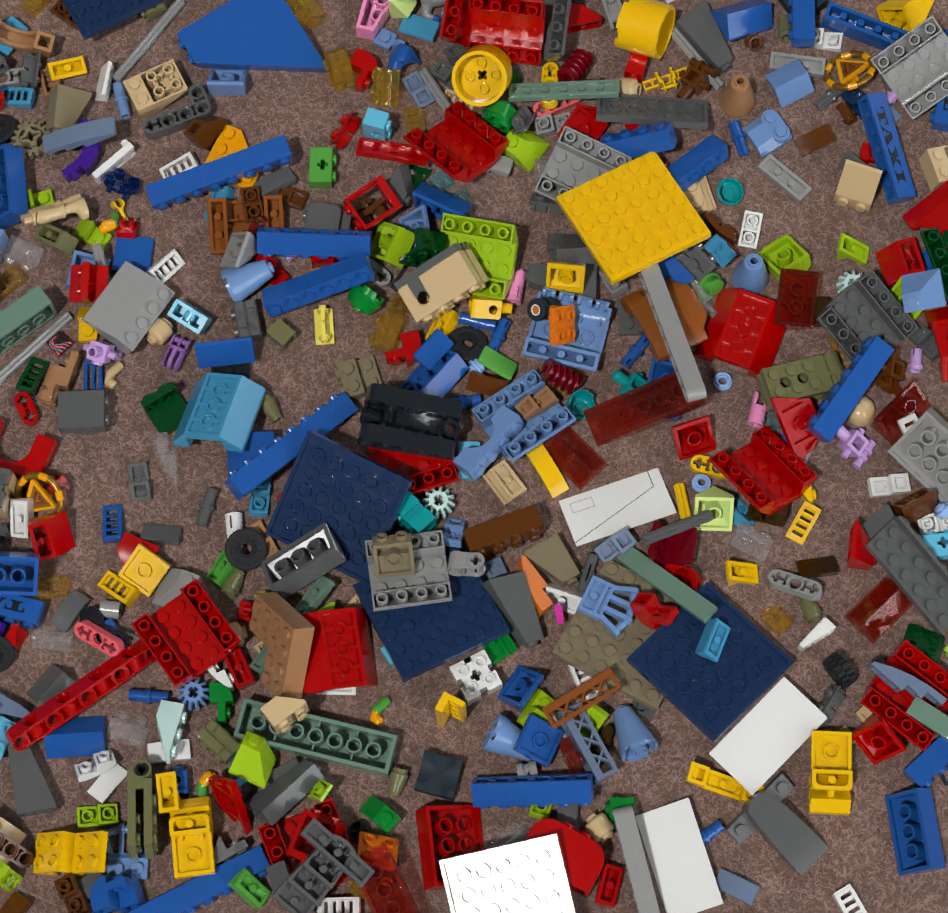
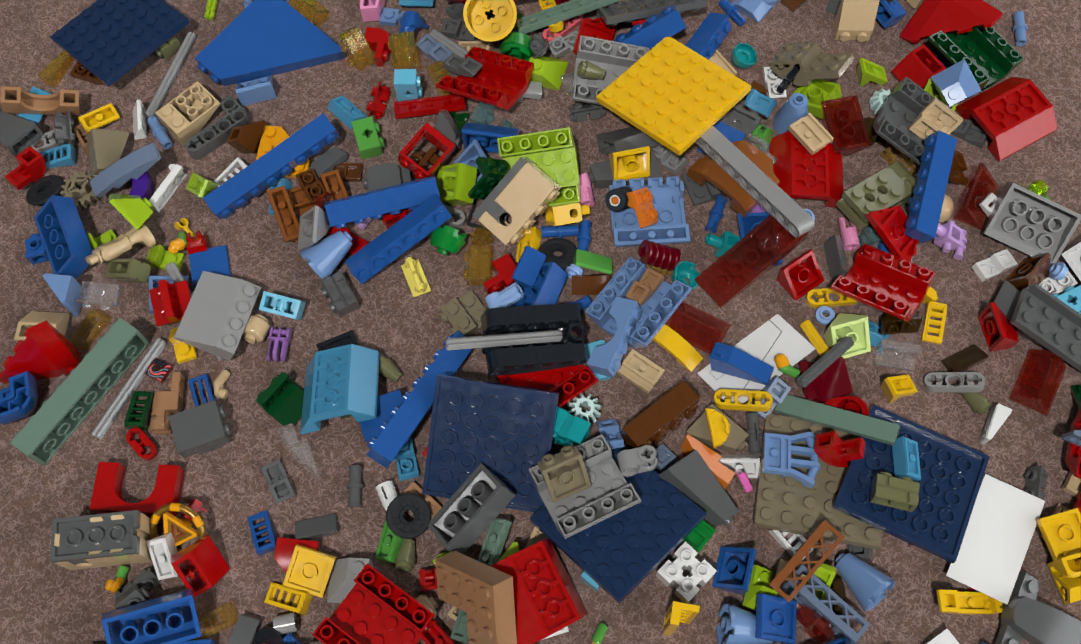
camera: 20 degrees left, 5 degrees down
(76, 177) = (132, 208): none -> lime slope
(101, 352) = (203, 365): lavender piece -> none
(121, 183) = (179, 203): clear blue plate -> none
(146, 171) = (200, 186): none -> lime slope
(154, 271) = (253, 256): white slope -> none
(225, 352) = (327, 328): blue slope -> none
(281, 334) = (376, 296): olive brick -> none
(310, 131) = (345, 110): none -> dark azure slope
(381, 415) = (503, 339): none -> light grey axle
(397, 374) = (505, 297): none -> light blue piece
(440, 121) = (464, 67): none -> dark grey slope
(553, 557) = (718, 427): none -> yellow tile
(562, 165) = (589, 70): none -> olive cone
(582, 532) = (758, 395): none -> yellow beam
(597, 505) = (739, 364): none -> blue slope
(639, 520) = (785, 367): none -> arm
(685, 663) = (894, 492): none -> olive brick
(735, 429) = (835, 256): none -> dark grey slope
(755, 299) = (810, 133): none -> tan plate
(776, 627) = (952, 428): clear yellow brick -> none
(784, 178) = (784, 31): light grey plate -> none
(785, 222) = (804, 63): none -> dark tan piece
(839, 670) = (1034, 450): black tyre -> none
(887, 323) = (935, 117): none -> tan slope
(915, 360) = (968, 151): lavender pin -> none

